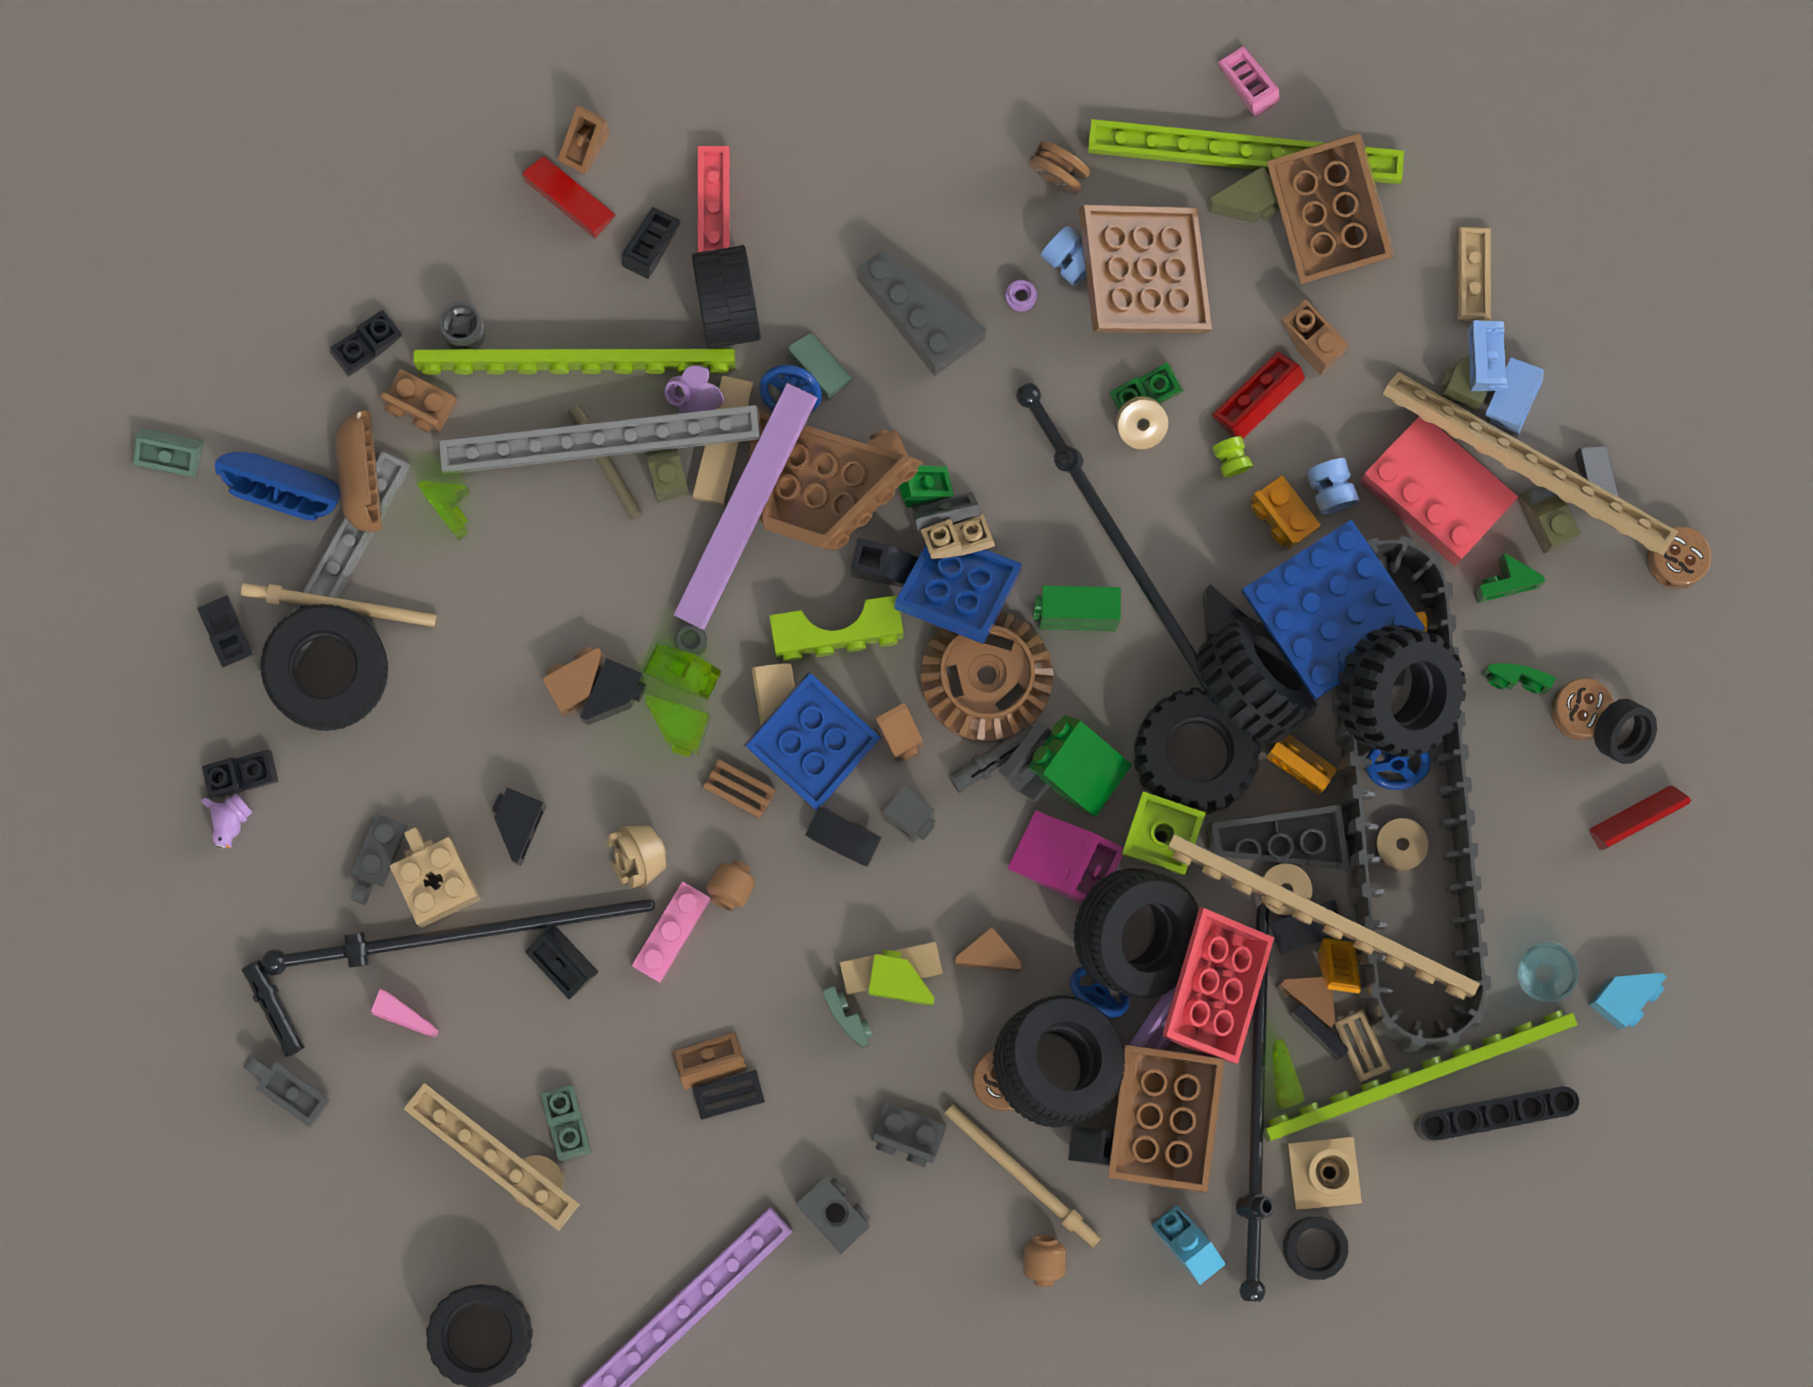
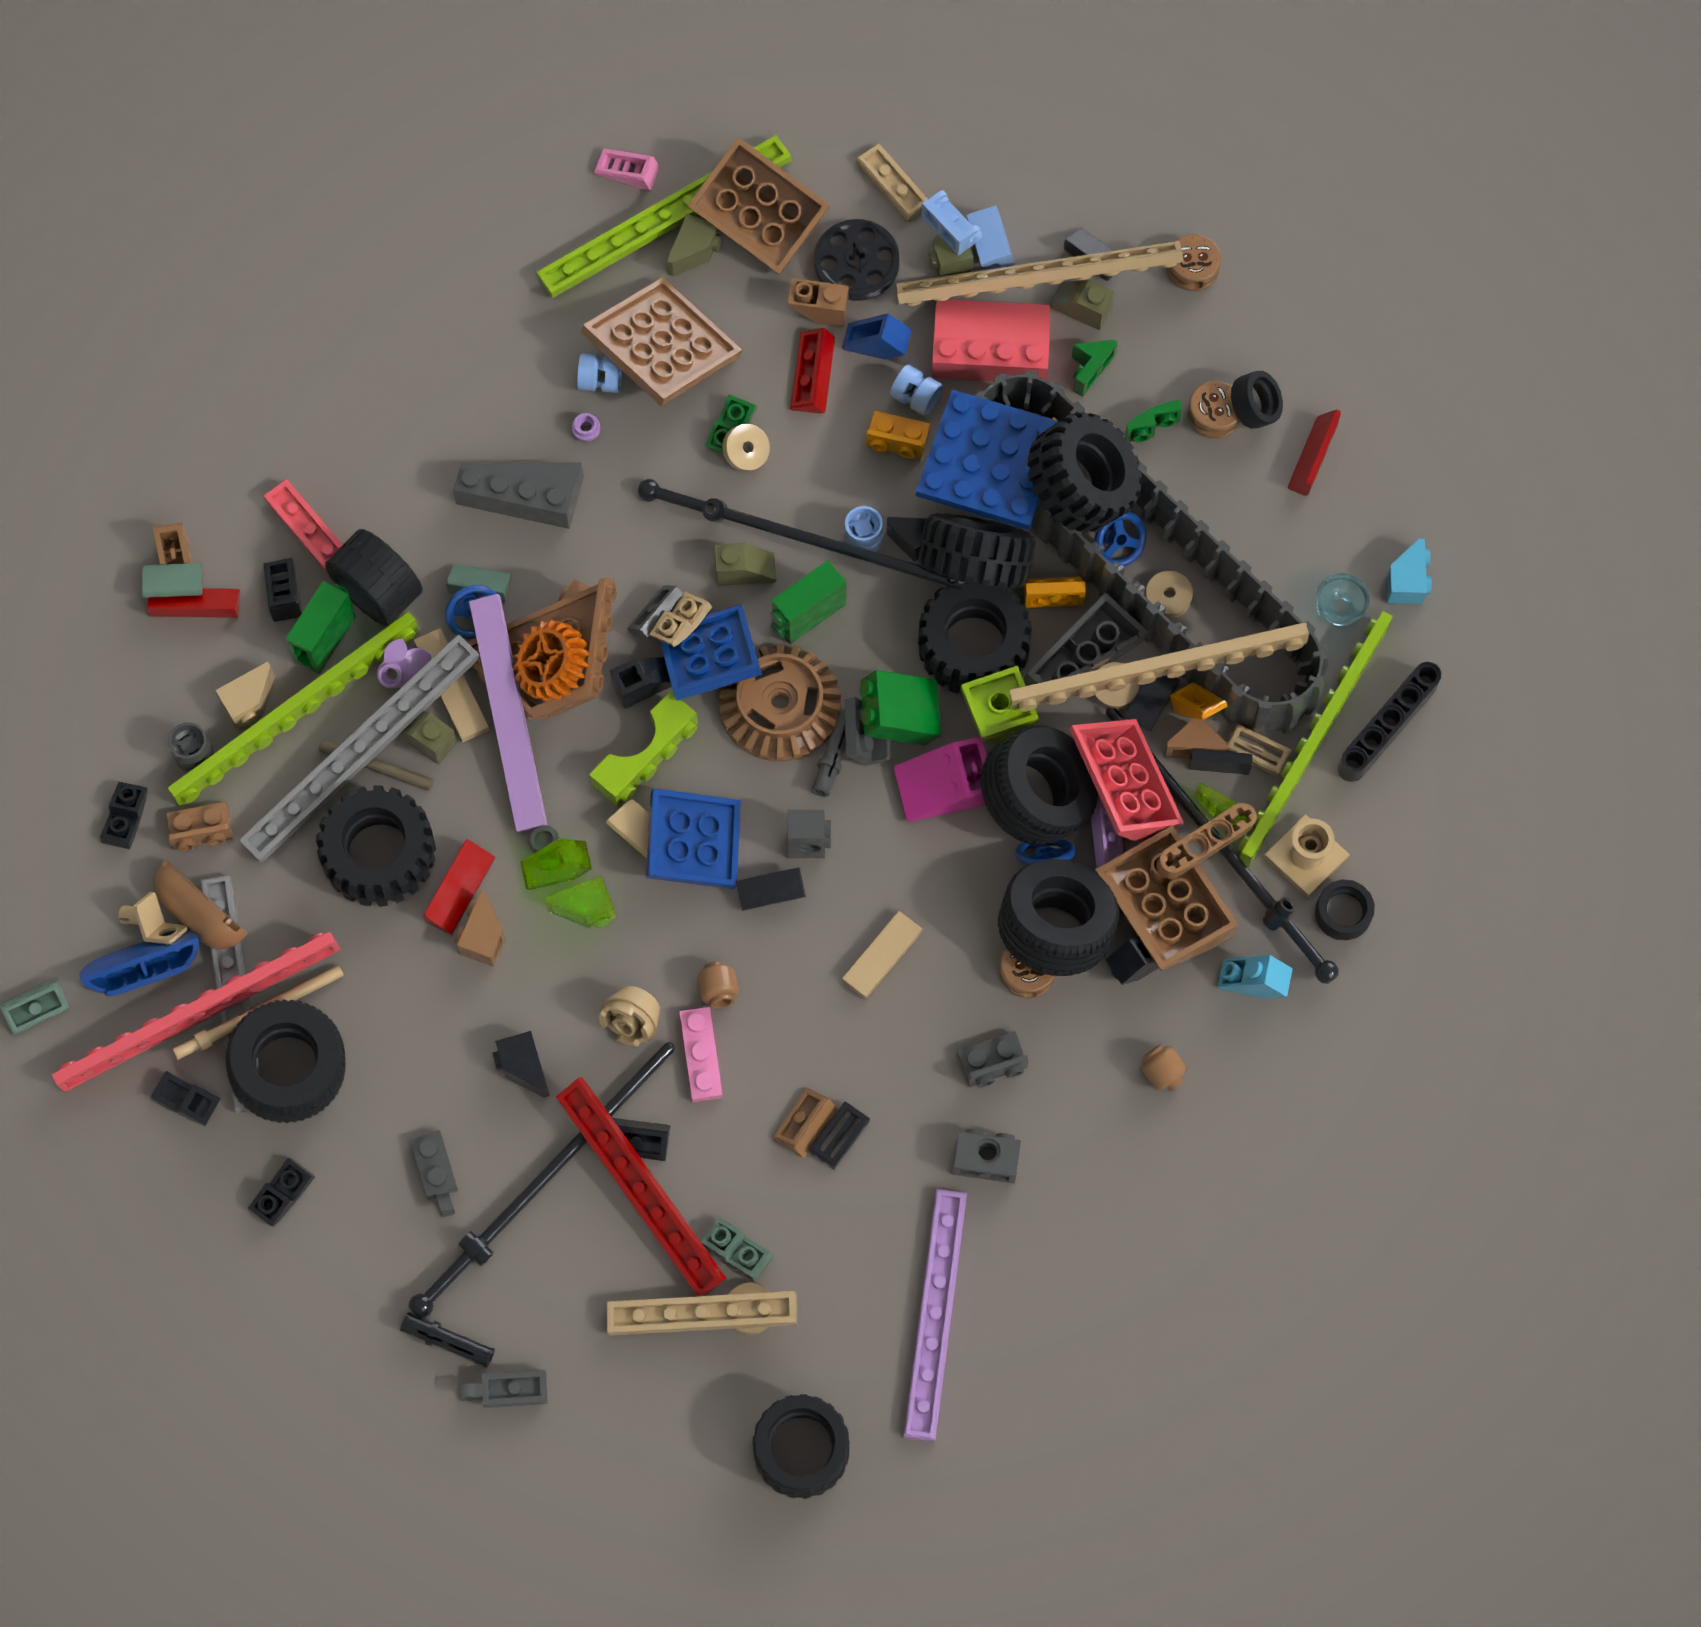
camera: 35 degrees left, 10 degrees down
(227, 819) = (298, 1229): lavender animal -> none
(275, 561) = (188, 1015): none -> coral plate
(313, 456) = (150, 920): none -> tan bracket
(395, 1011) = (548, 1267): bright pink slope -> none
(423, 863) = (487, 1134): tan hinge -> none
(443, 497) = (274, 880): clear neon green slope -> none
(527, 1009) = (641, 1187): none -> red plate
(535, 496) = (363, 811): none -> black tyre
(545, 317) = (247, 695): none -> tan slope
(562, 164) = (172, 580): none -> sand green slope
(587, 625) = (458, 887): none -> red slope
(613, 692) = (517, 916): black slope -> none
(651, 305) = (321, 627): none -> green brick
(715, 776) = (665, 905): medium nougat tile -> none
(814, 473) = (544, 655): none -> orange gear
(857, 1030) = (889, 1015): sand green slope -> none
(897, 980) = (896, 954): lime slope -> none
(899, 733) = (751, 784): medium nougat slope -> none
(927, 485) = (627, 605): green slope -> none
(989, 953) = (946, 887): medium nougat slope -> none
(1054, 528) = (744, 564): none -> olive slope
(1056, 166) = (541, 318): medium nougat head -> none
(1070, 1219) = (1158, 1026): tan bar -> none
(1180, 580) = (864, 528): none -> light blue wheel
(1232, 457) = (829, 423): lime wheel -> none
(1241, 1094) = (1206, 840): none -> medium nougat beam
(1339, 410) = (877, 337): none -> blue slope
(1397, 320) = (867, 254): none -> black wedge

